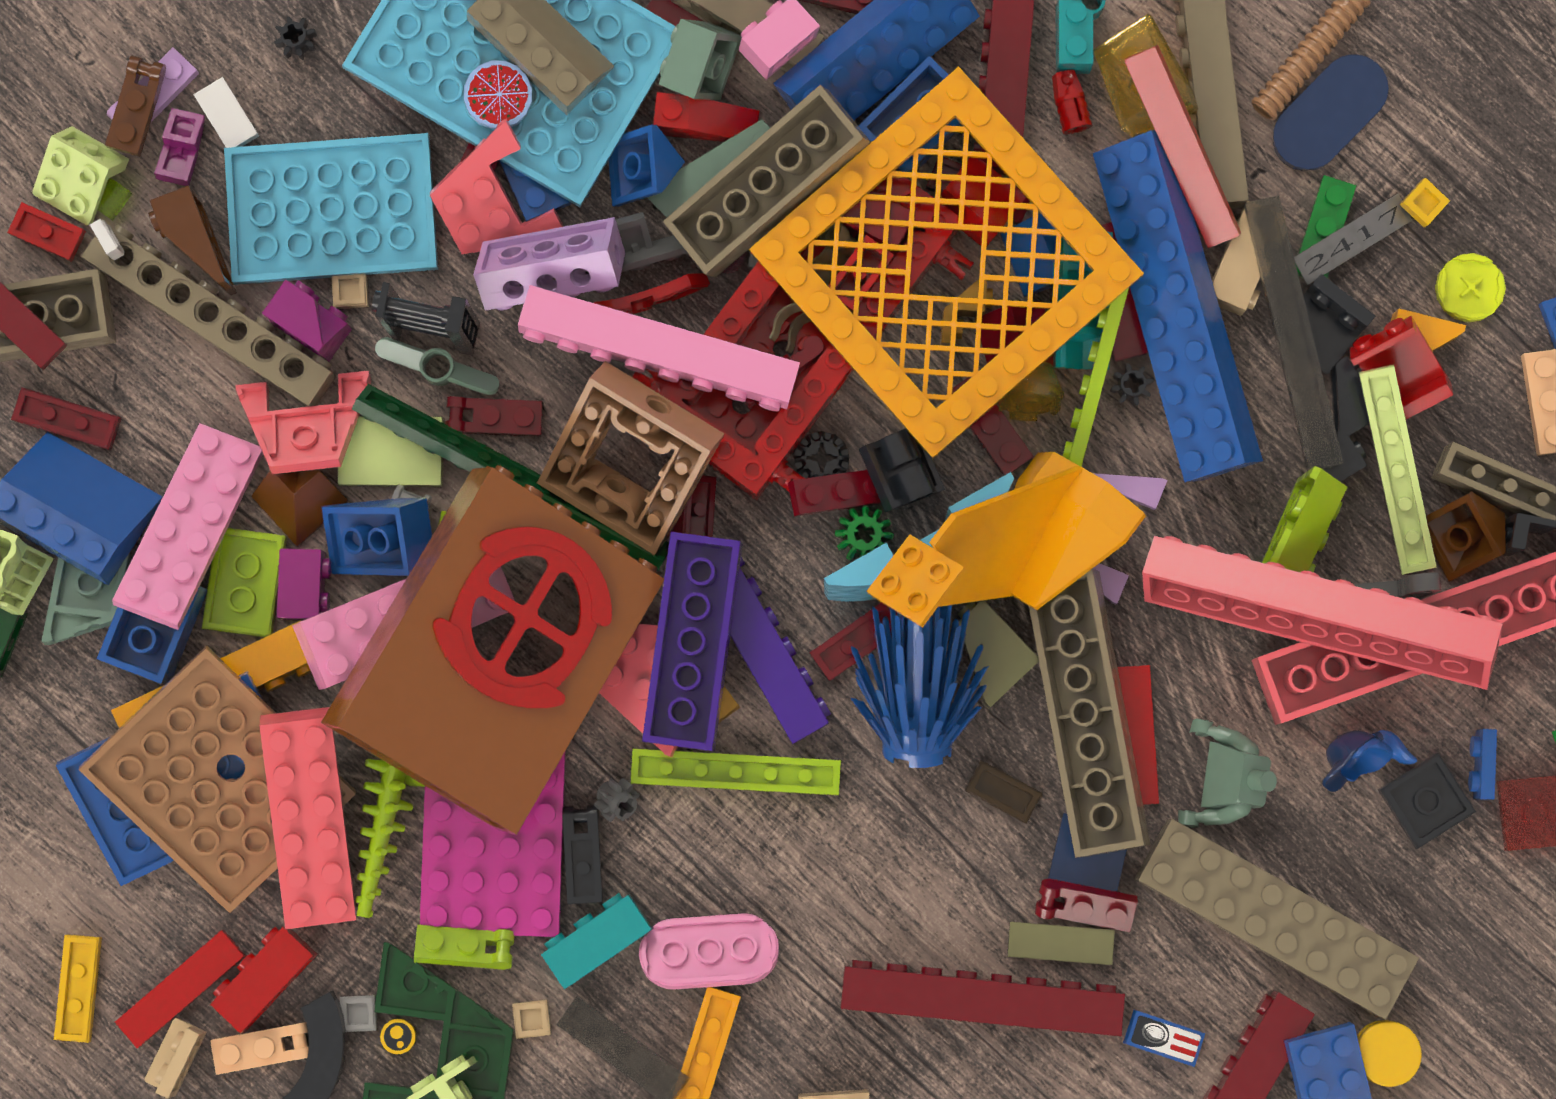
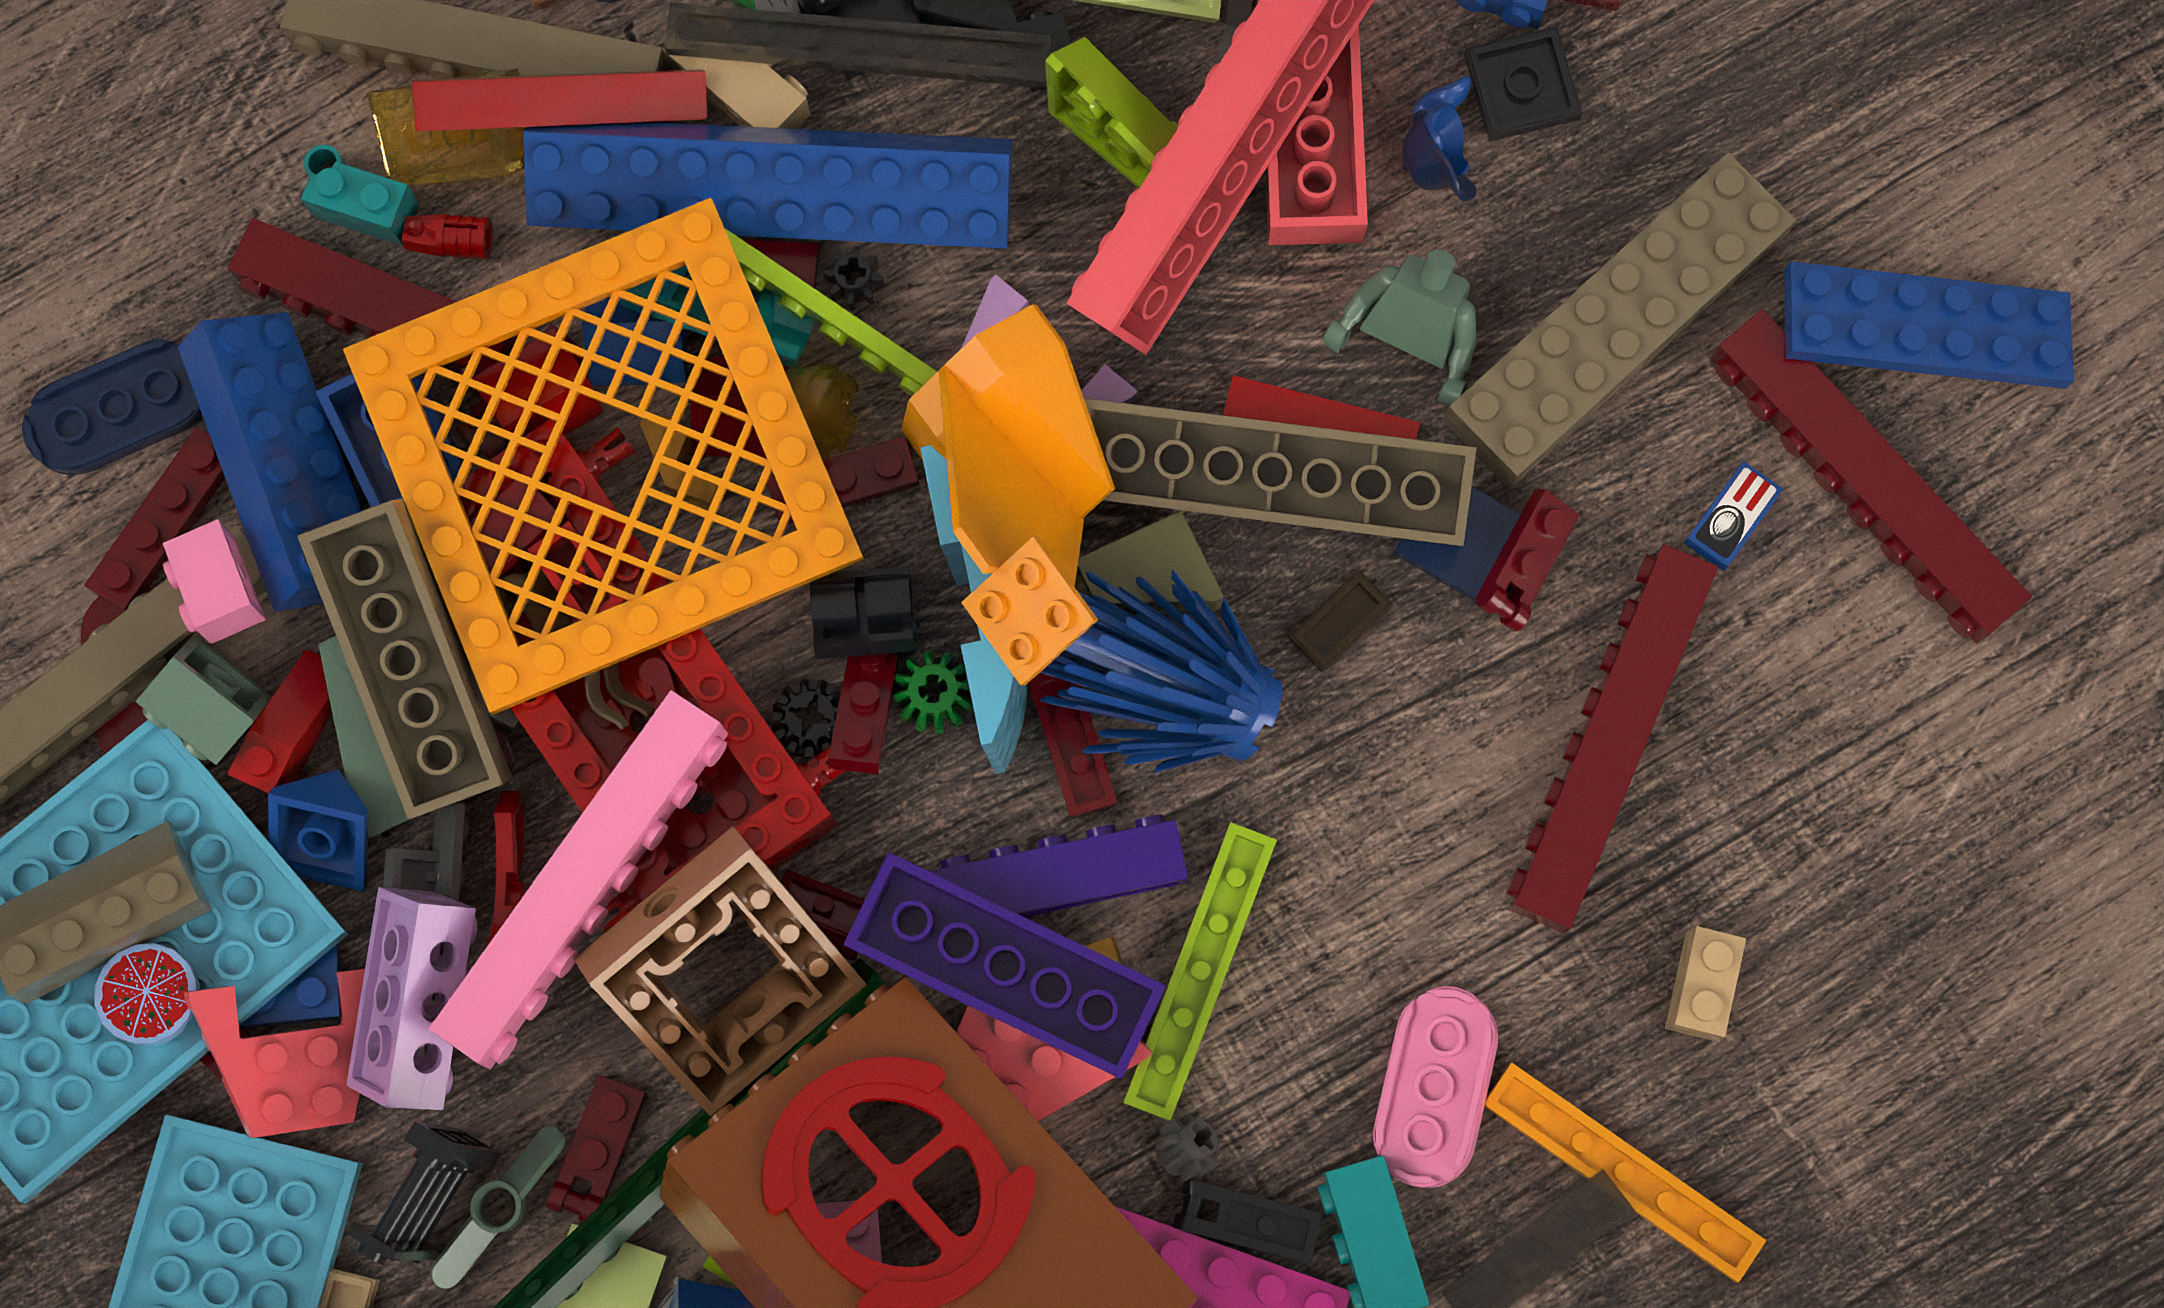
camera: 70 degrees left, 5 degrees down
(1060, 943) = (1566, 611): olive tile -> none
(1389, 1052) = (1838, 232): yellow head -> none

